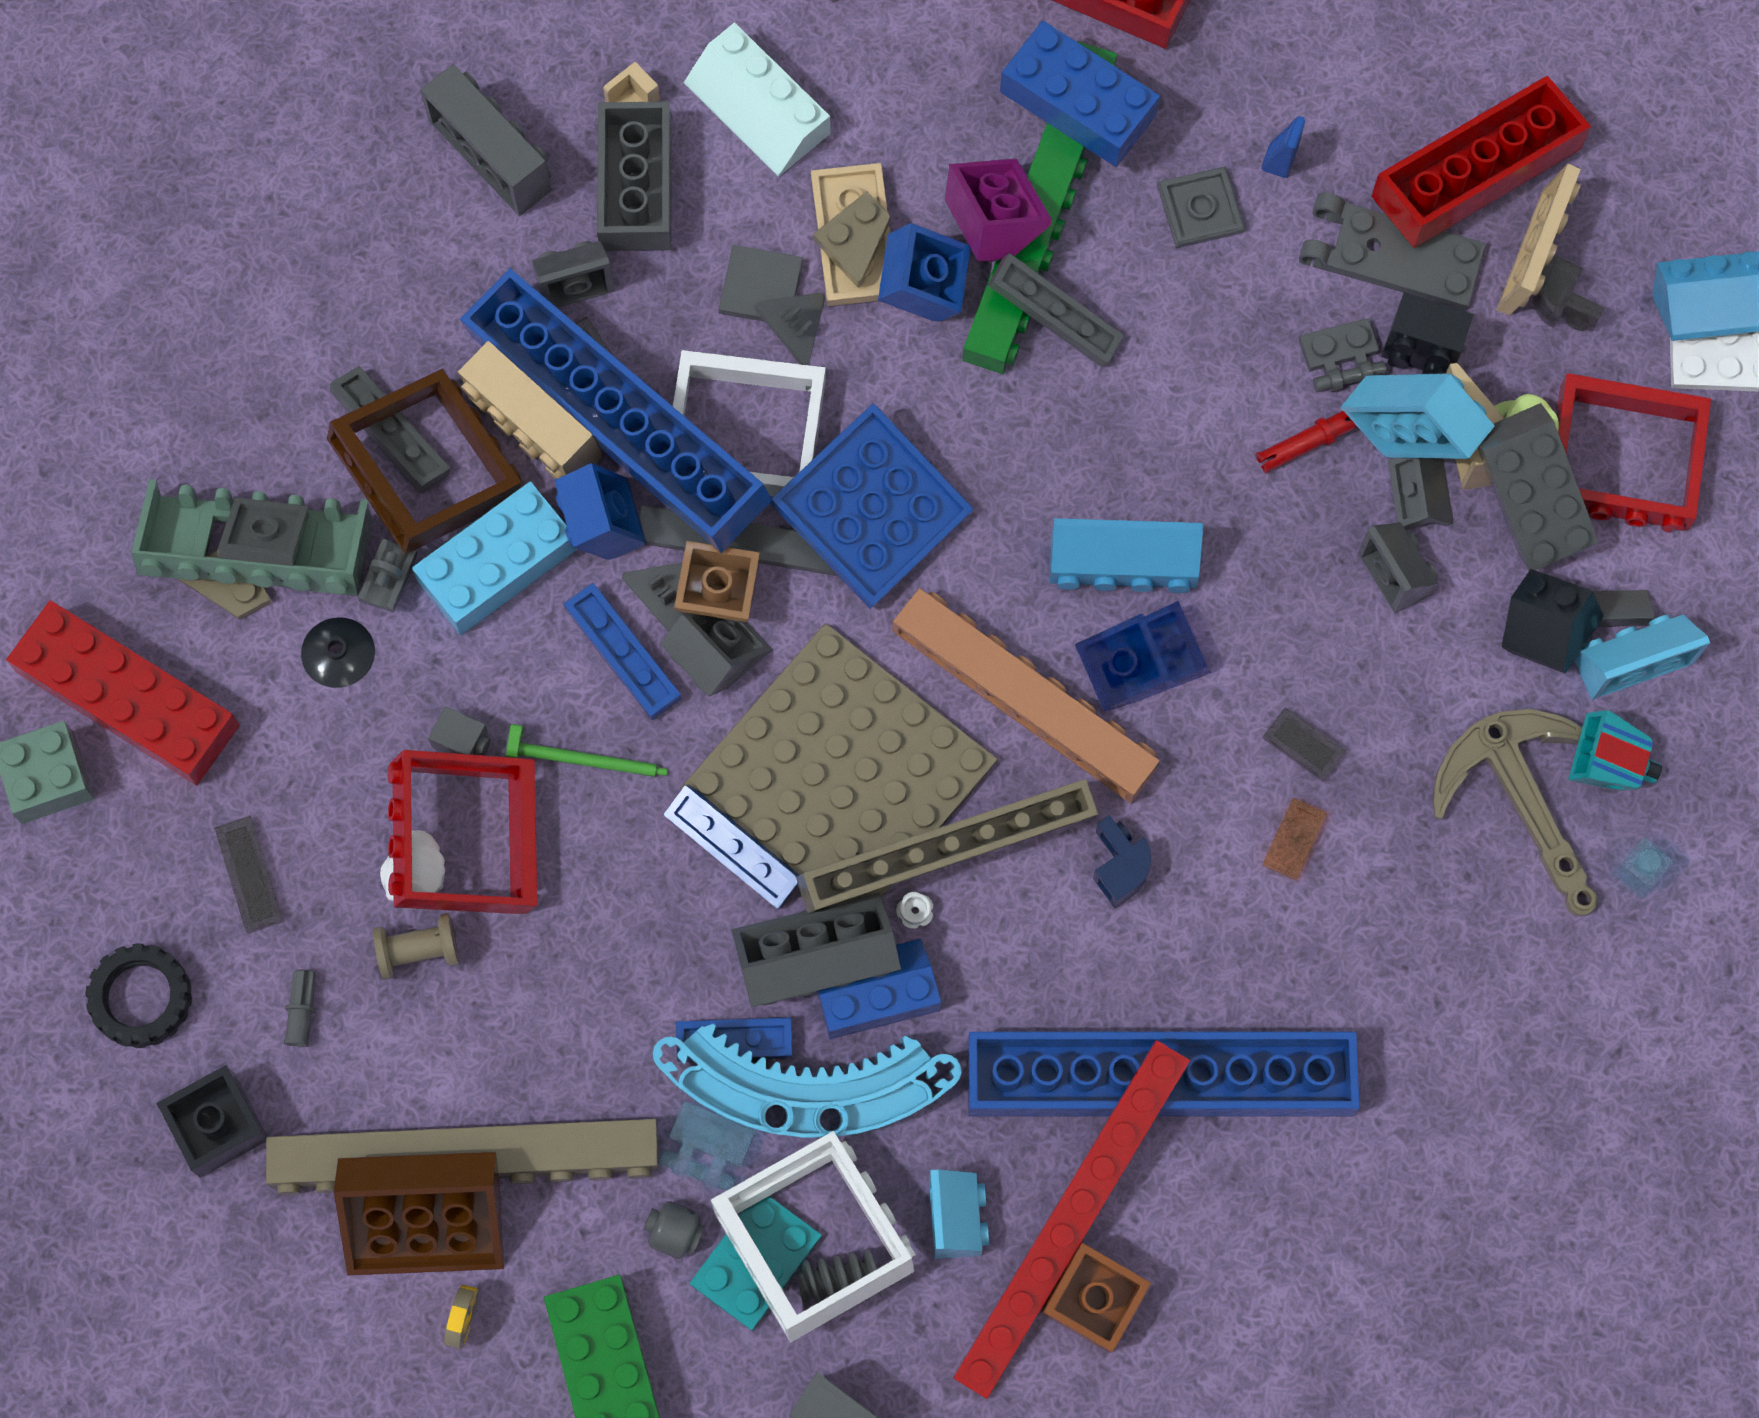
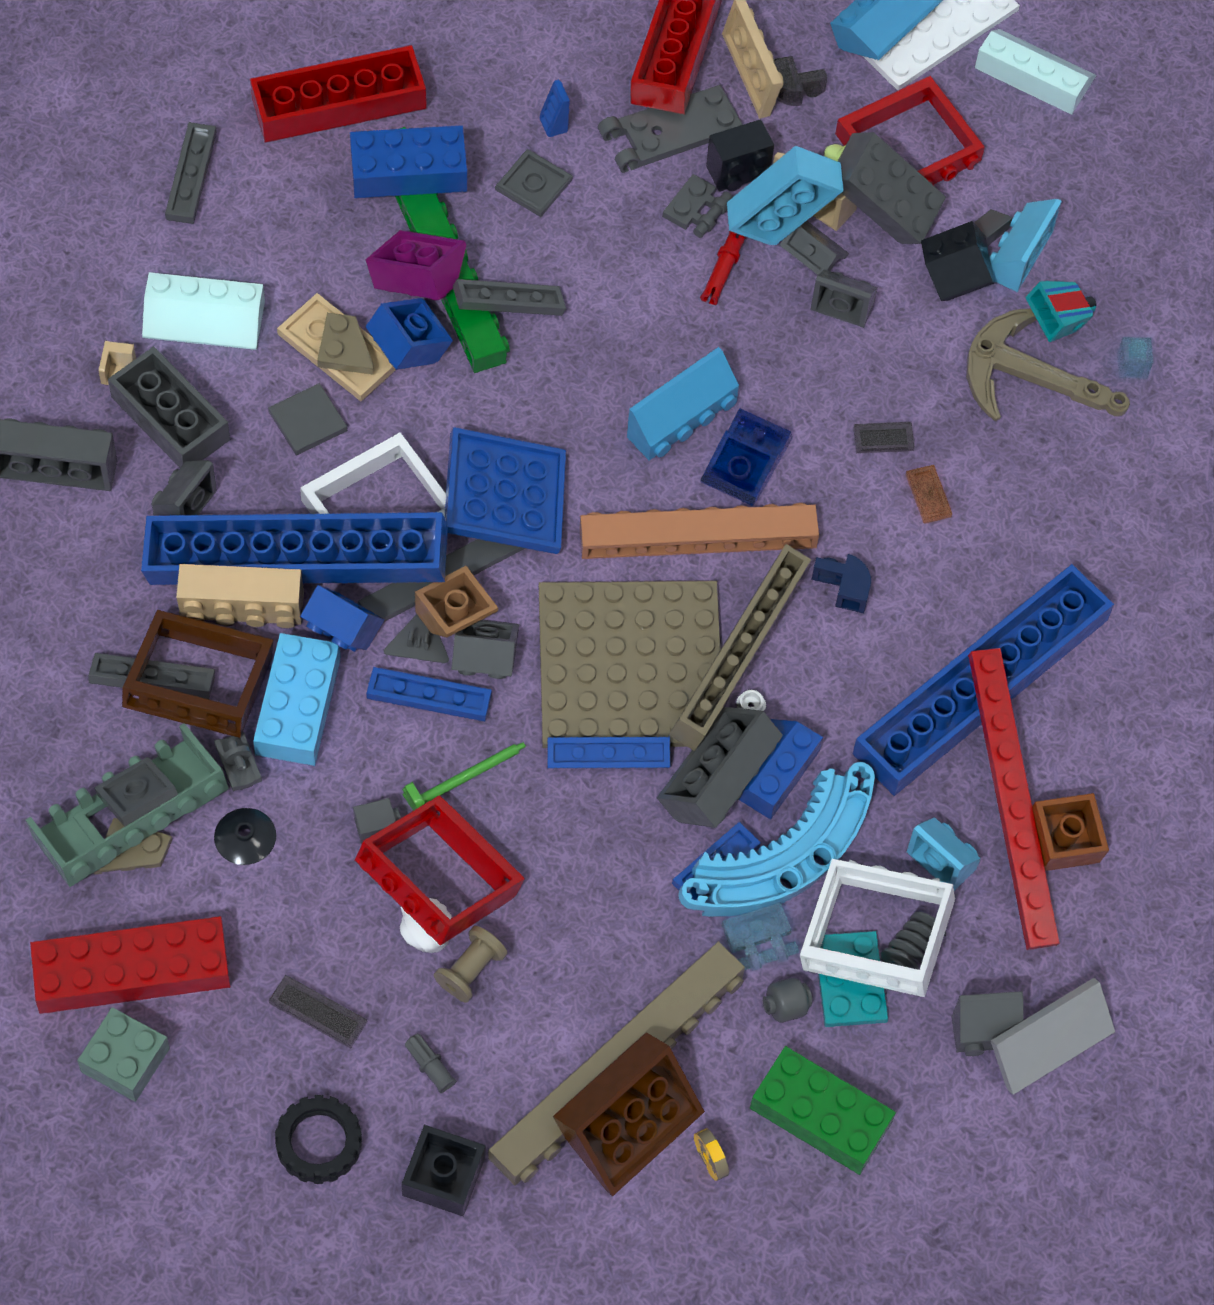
camera: 45 degrees left, 10 degrees down
(794, 322) = (350, 423): dark grey piece -> none

